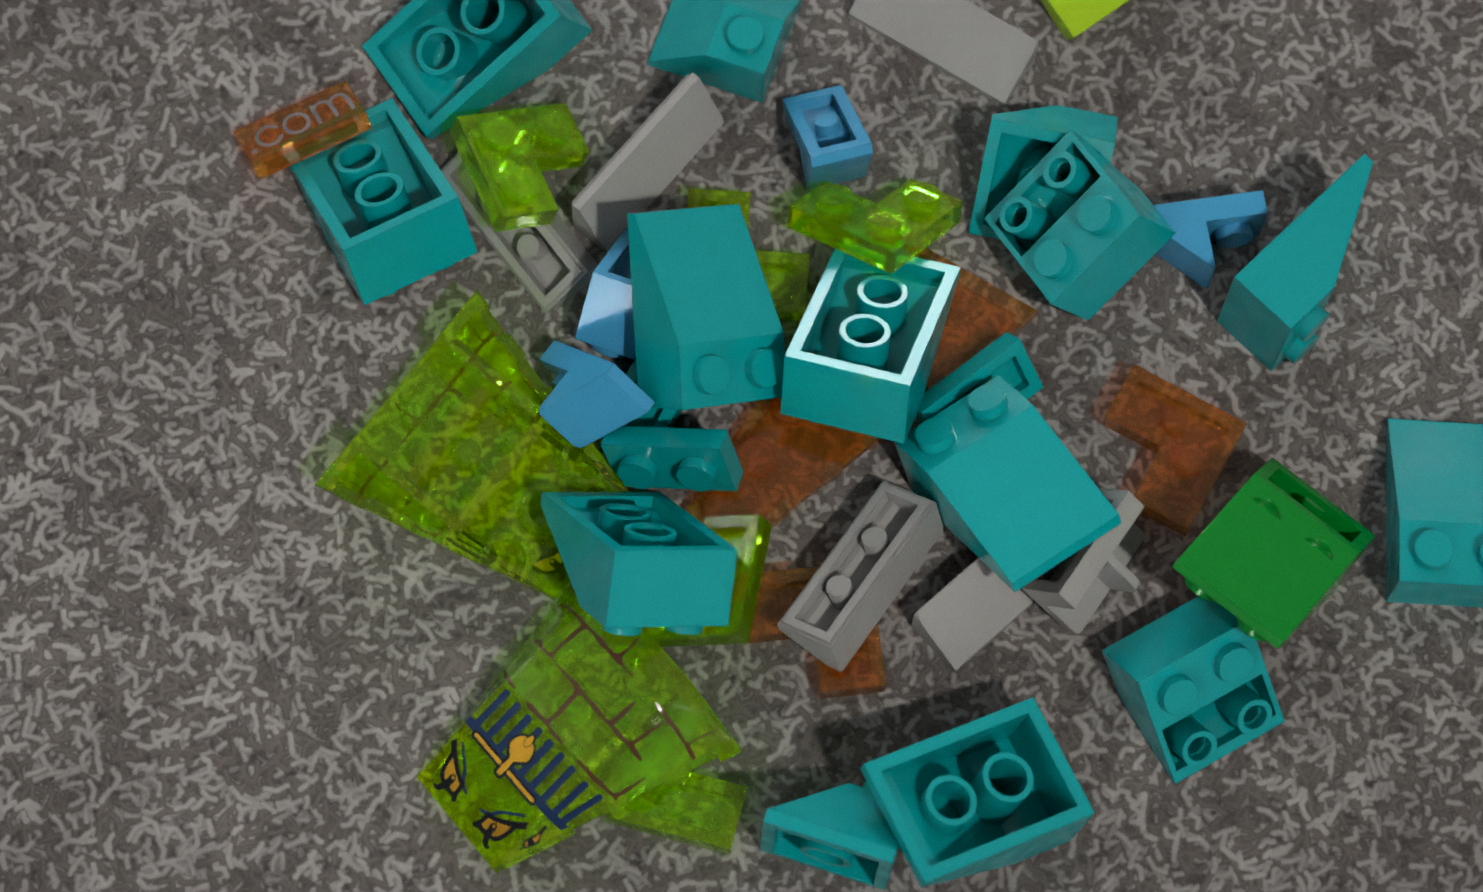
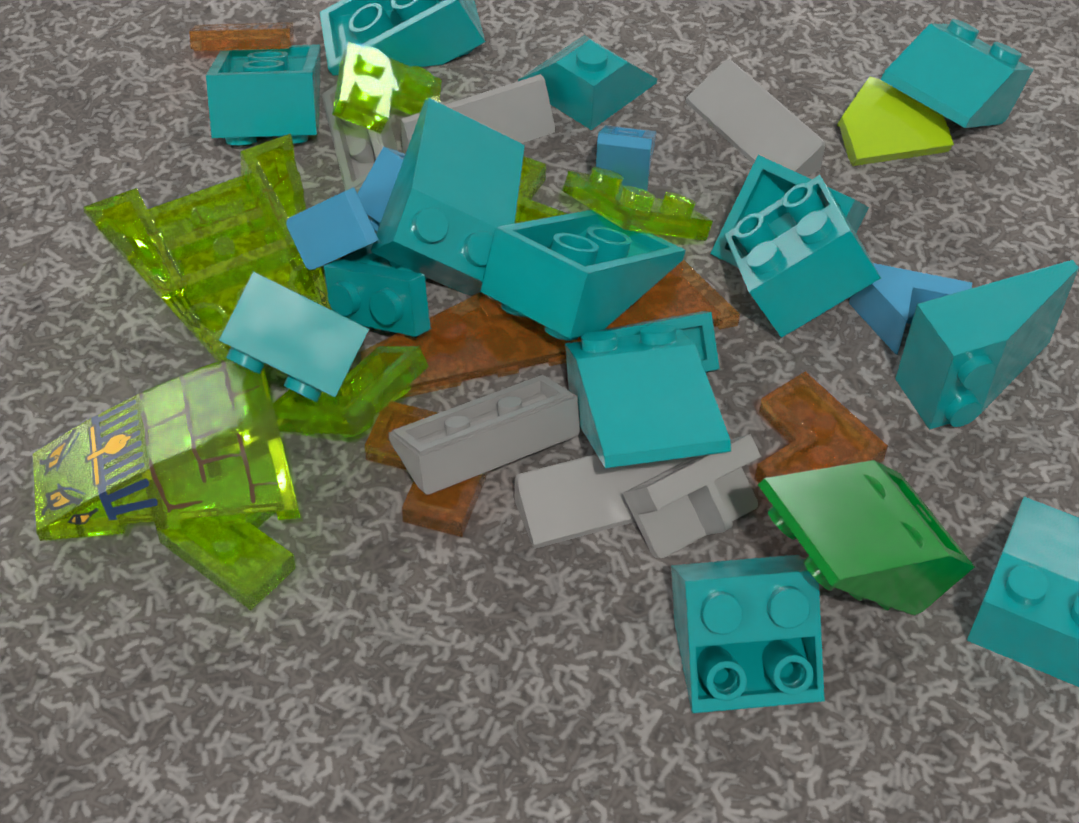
camera: 25 degrees right, 20 degrees down
(835, 833) = (349, 615): teal slope -> none
(979, 795) = (487, 627): teal slope -> none

